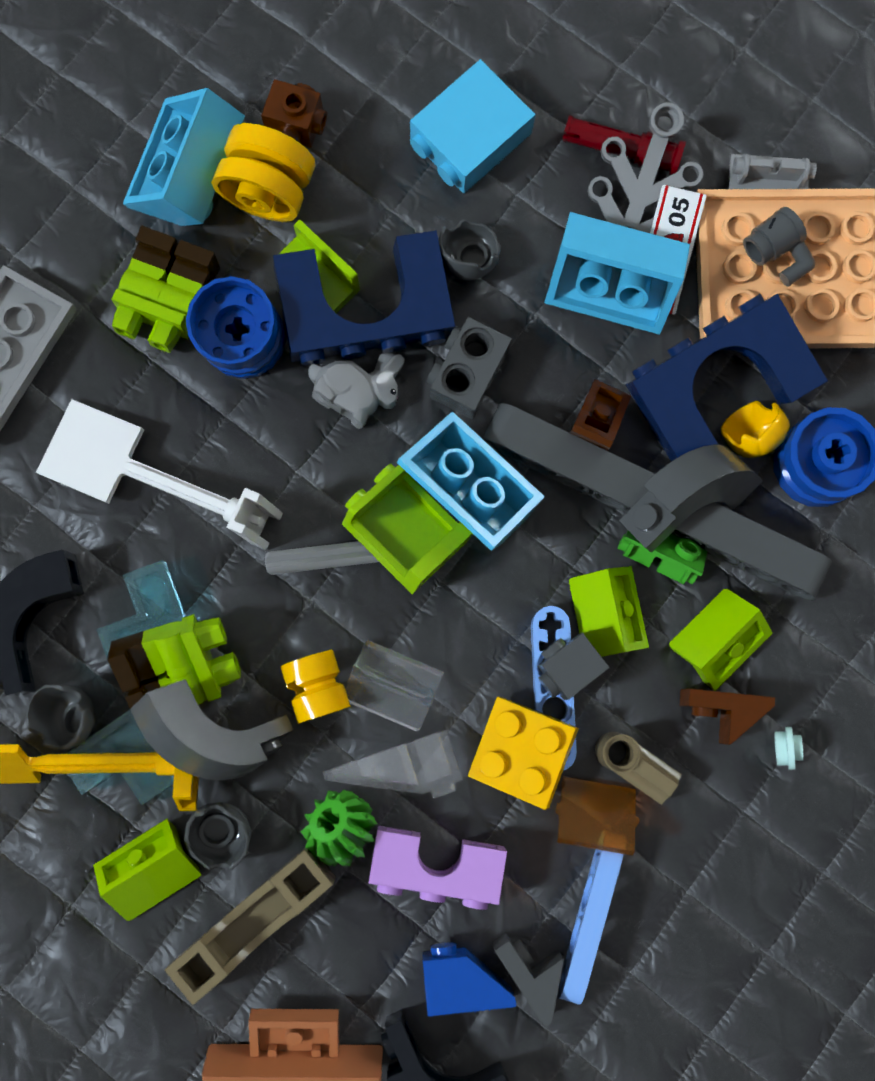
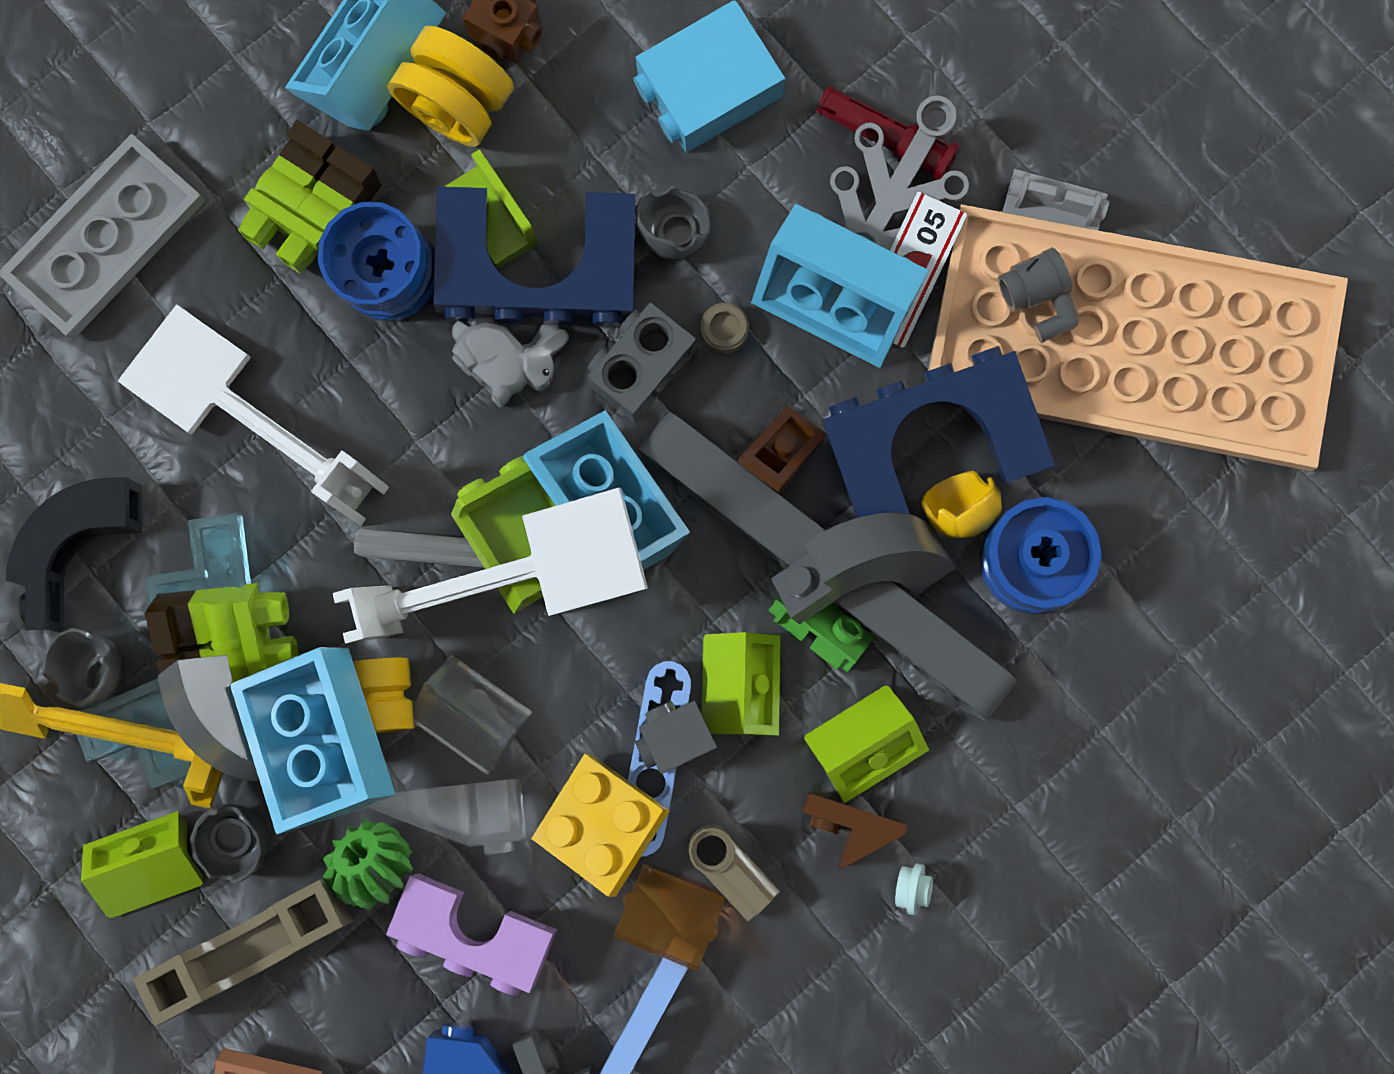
camera: 25 degrees right, 0 degrees up
(273, 734) = (312, 739): none -> medium azure slope
(460, 530) = (577, 552): none -> white piece
(528, 327) = (724, 328): none -> dark tan tile

